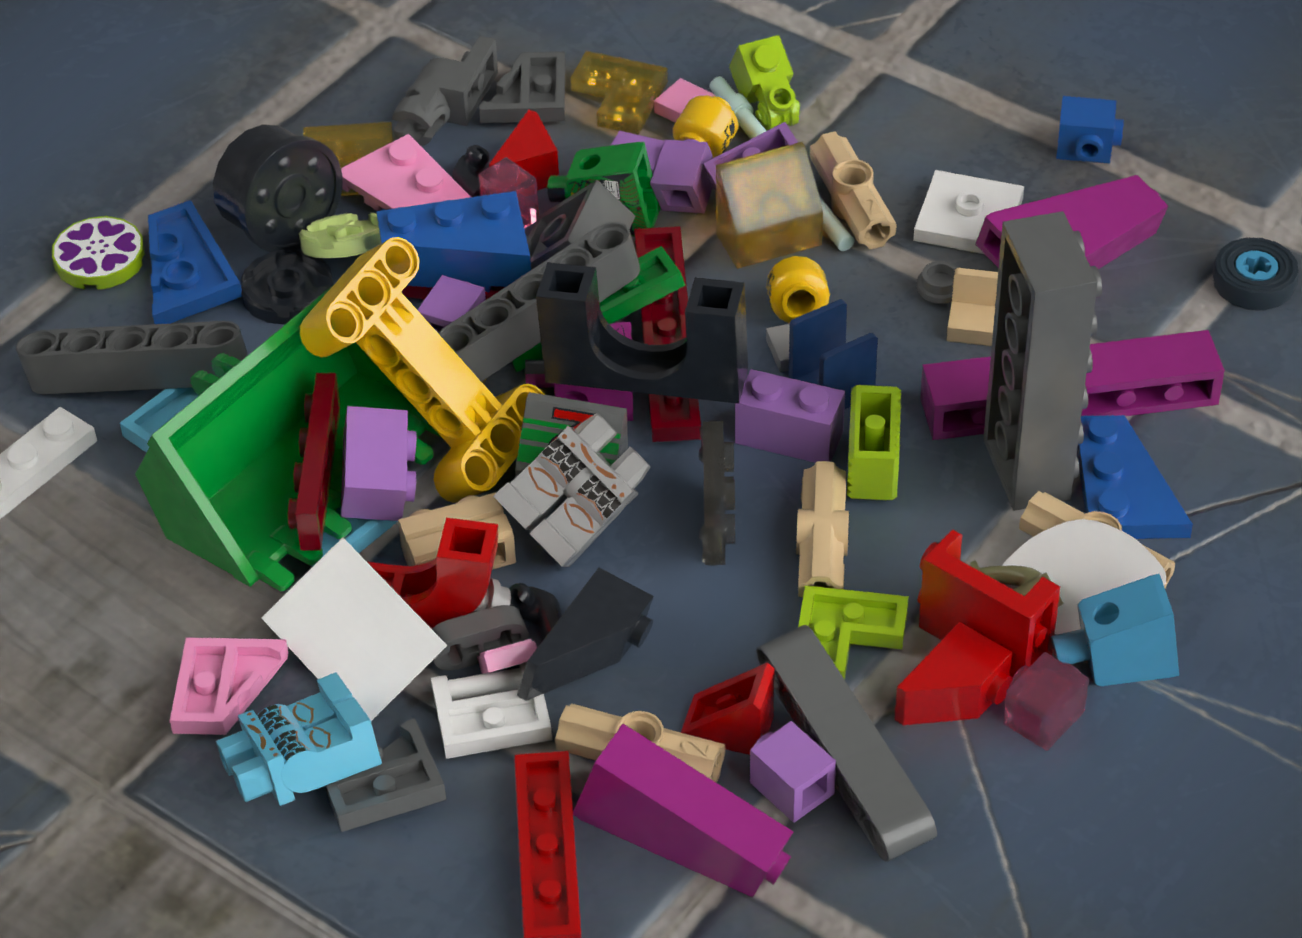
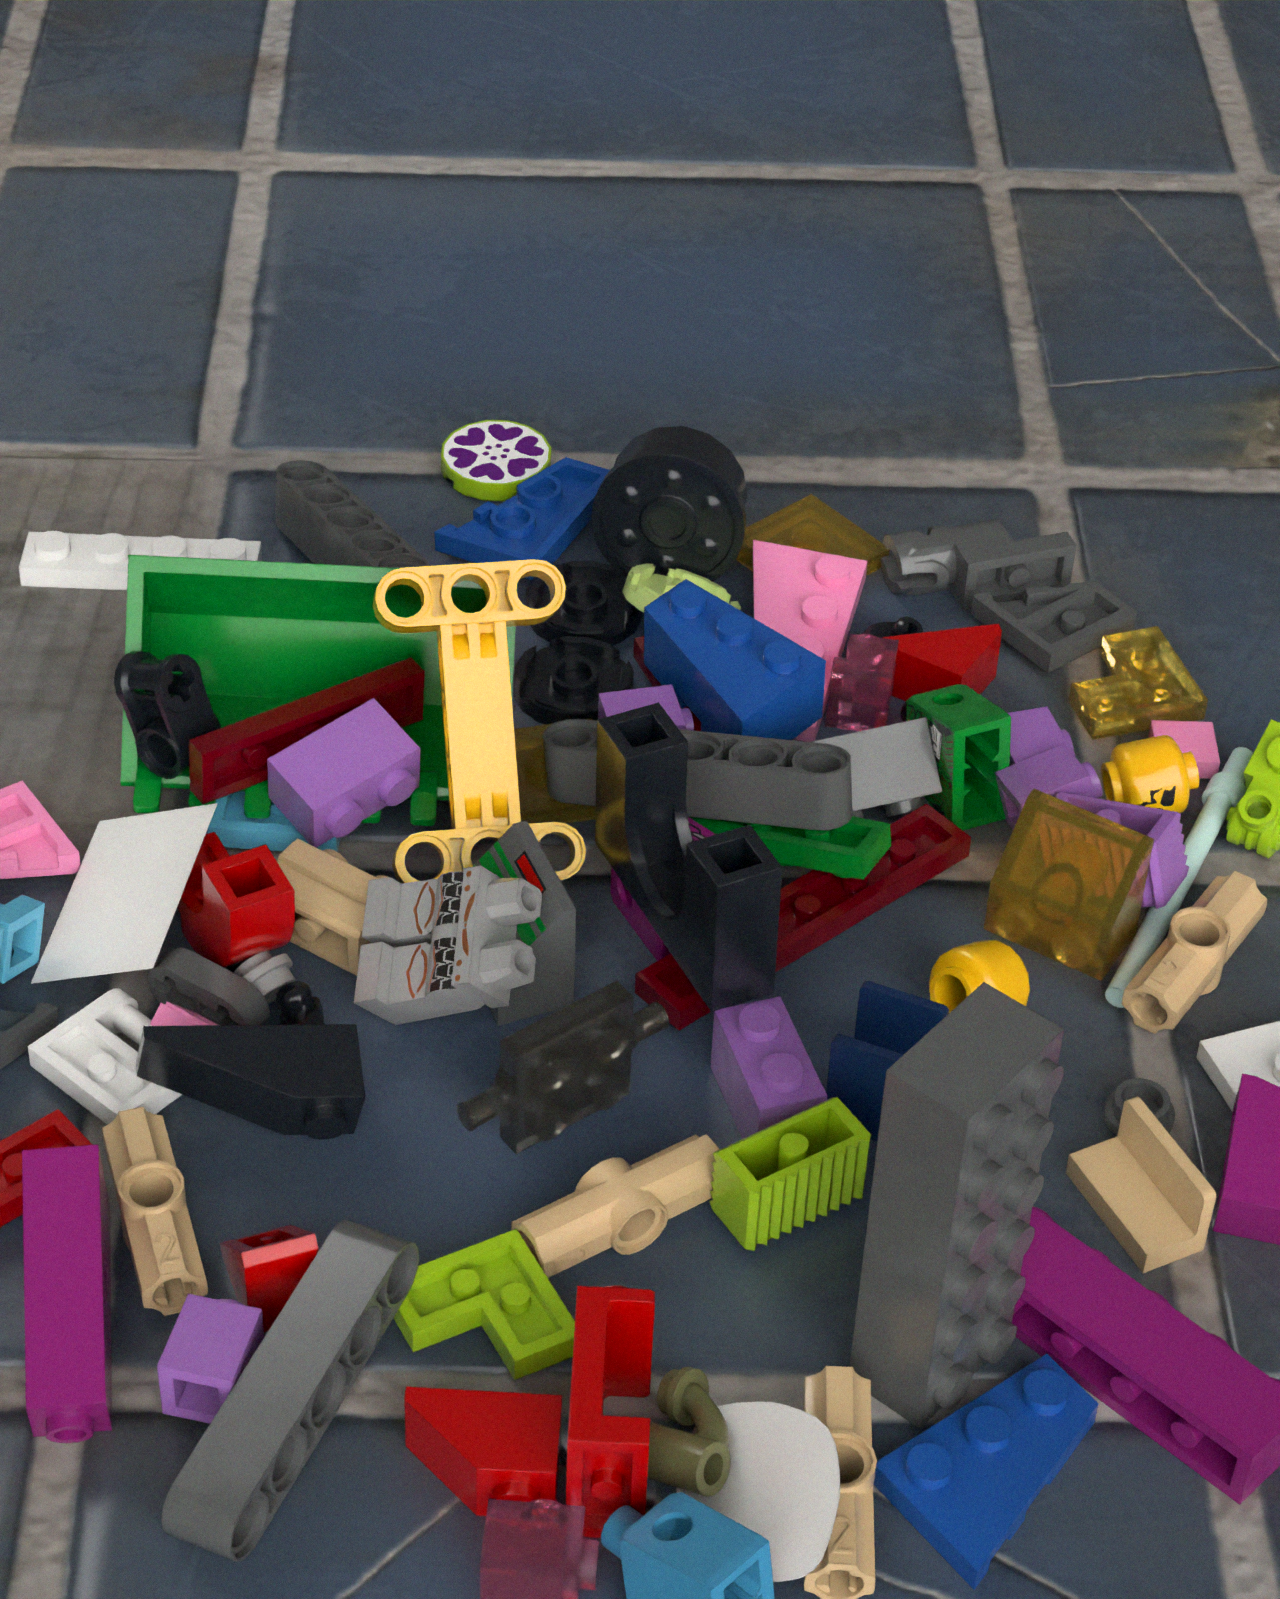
camera: 50 degrees right, 5 degrees down
(250, 515) = (167, 712): none -> black piece

